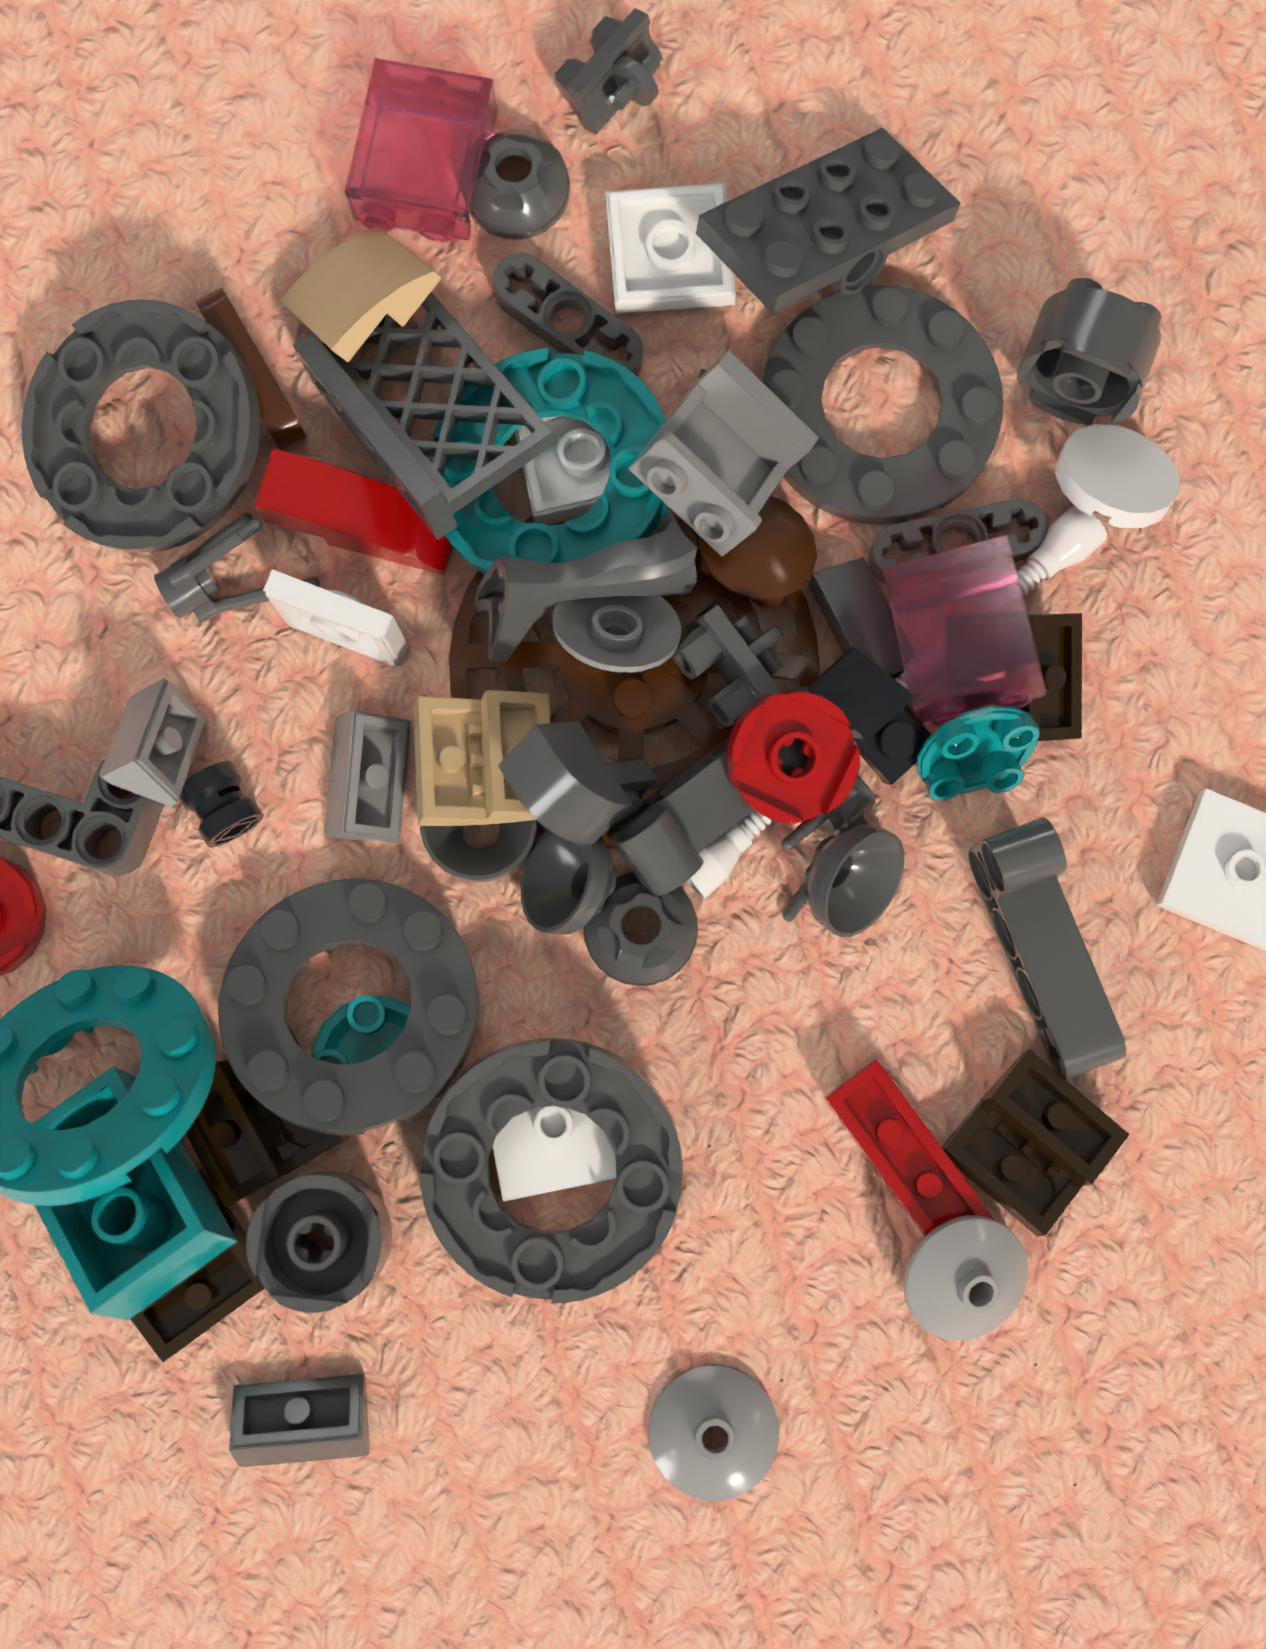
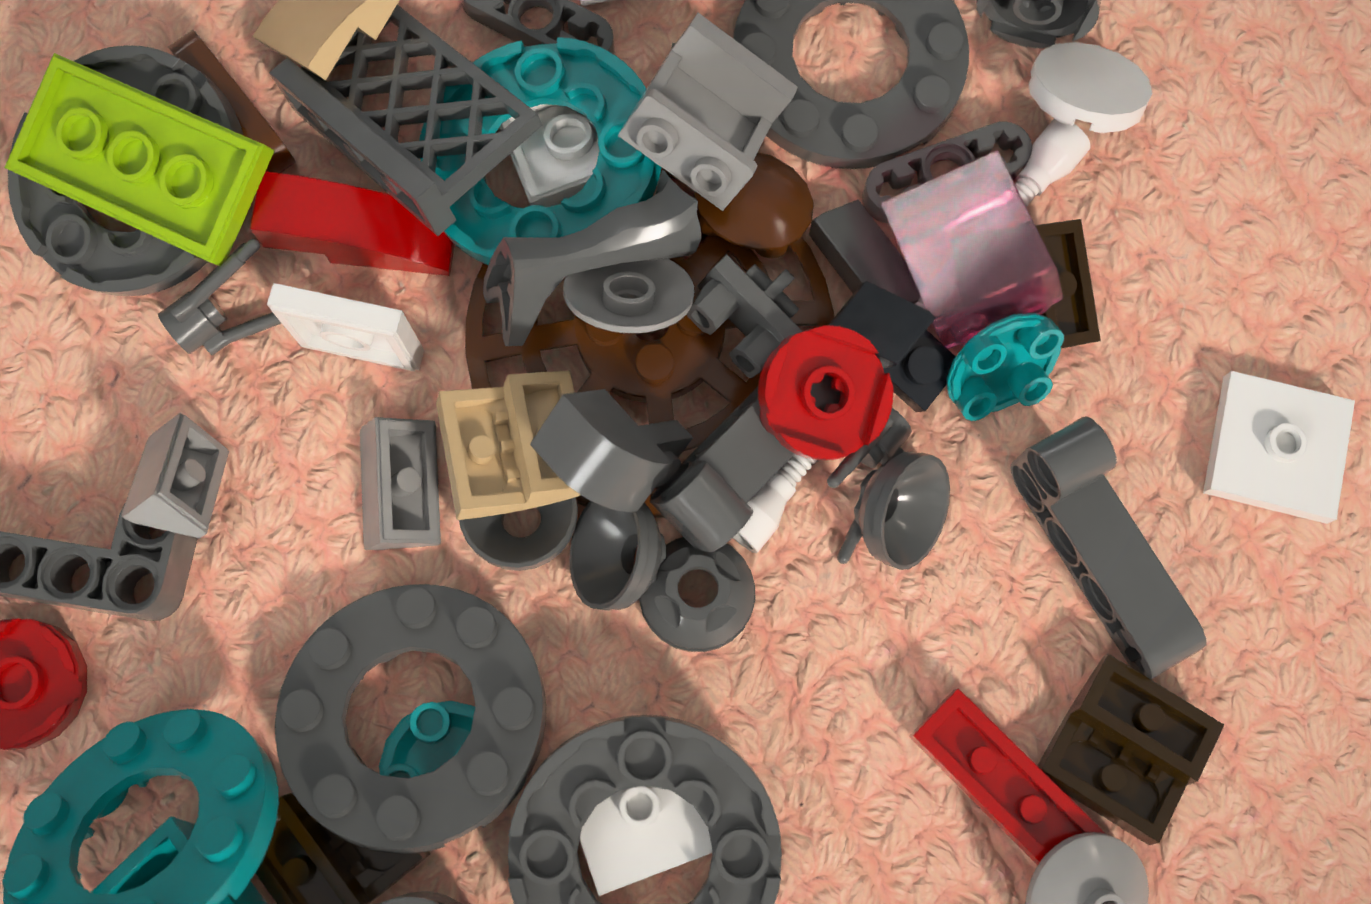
camera: 10 degrees left, 5 degrees down
(154, 420) = (139, 159): none -> lime tile
(220, 804) = (252, 531): black wheel -> none

